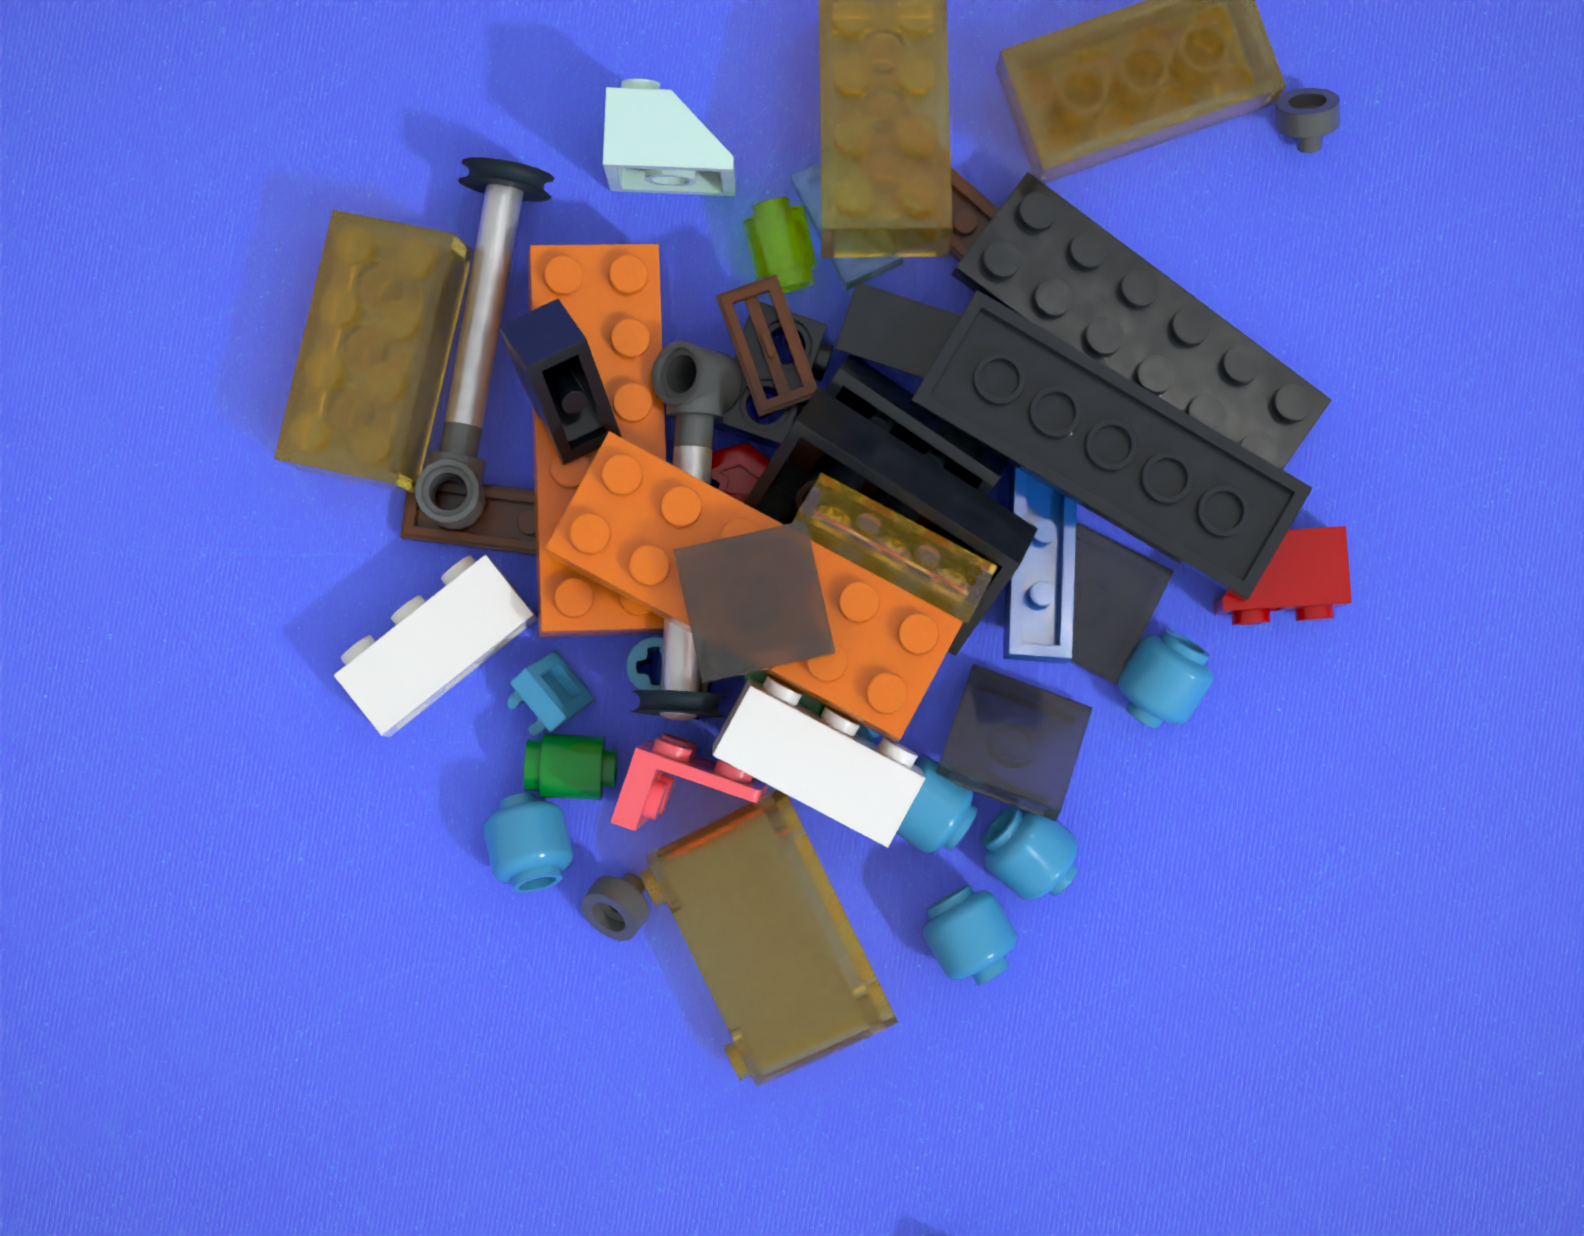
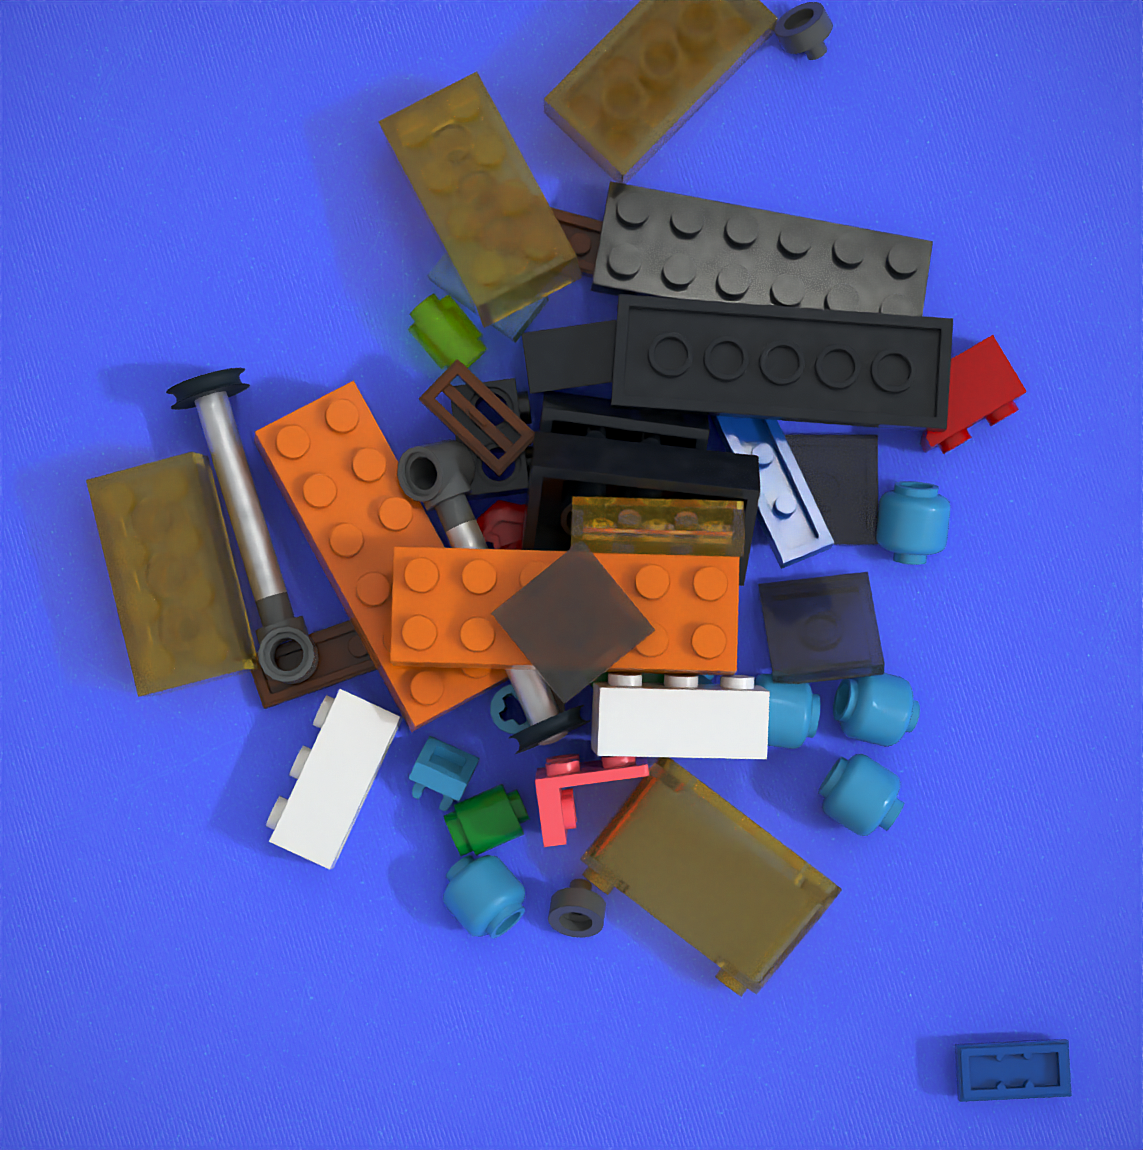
camera: 30 degrees left, 0 degrees up
(560, 379) = (334, 524): black slope -> none
(661, 145) = (316, 301): light aqua slope -> none

